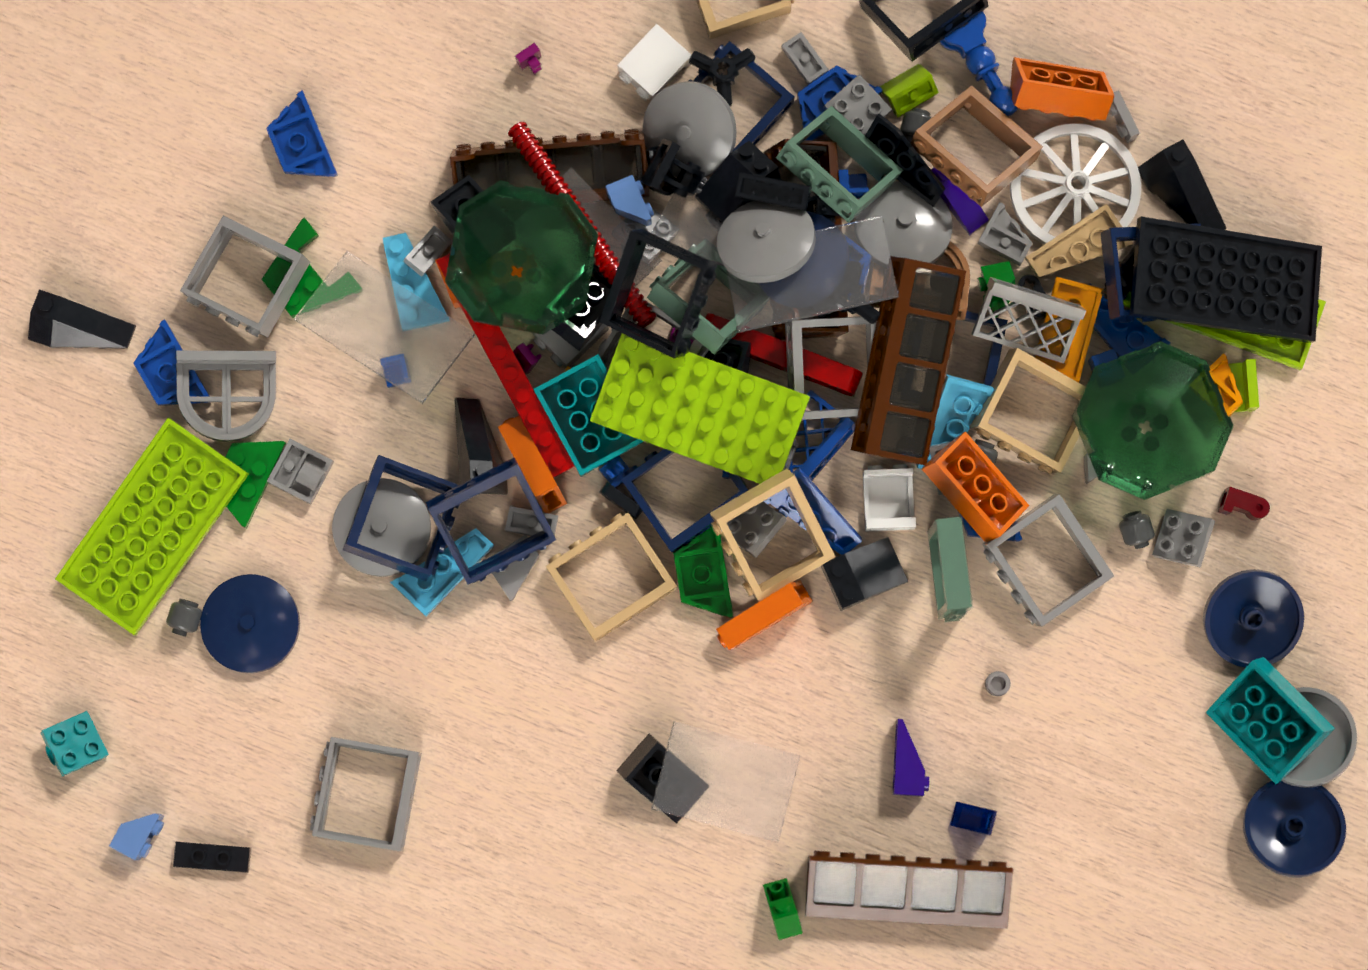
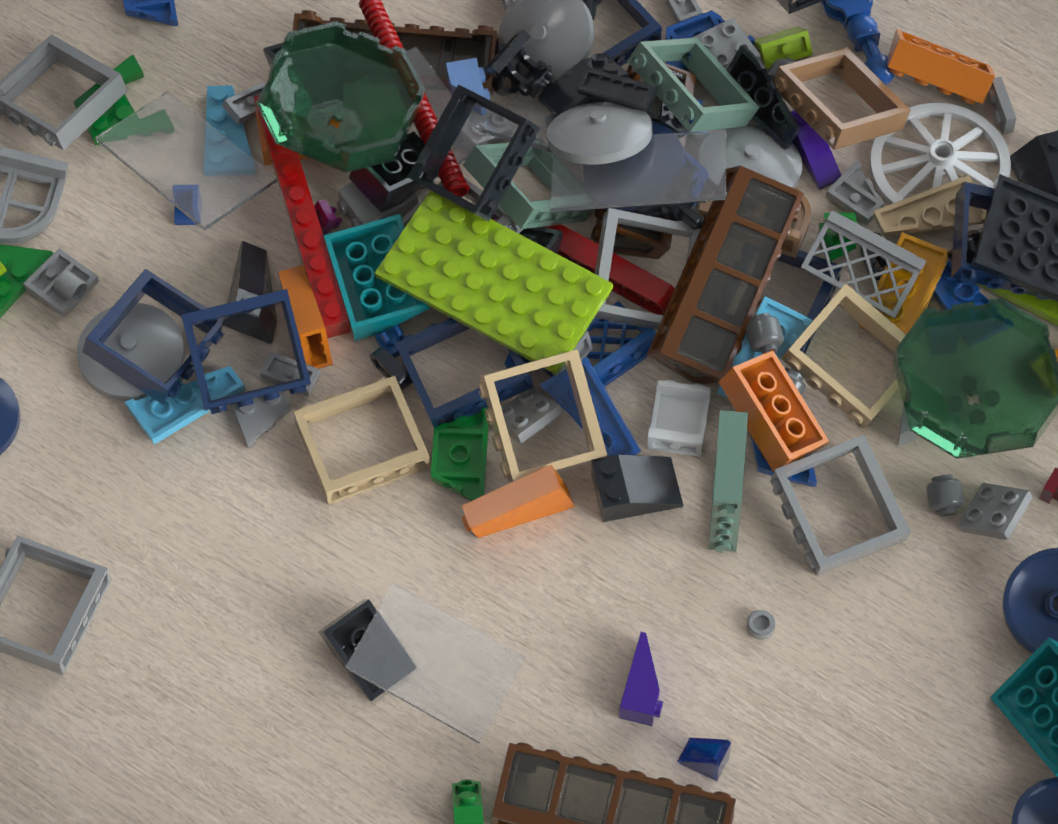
camera: 10 degrees right, 20 degrees down
(955, 416) = (764, 333): none -> dark grey head

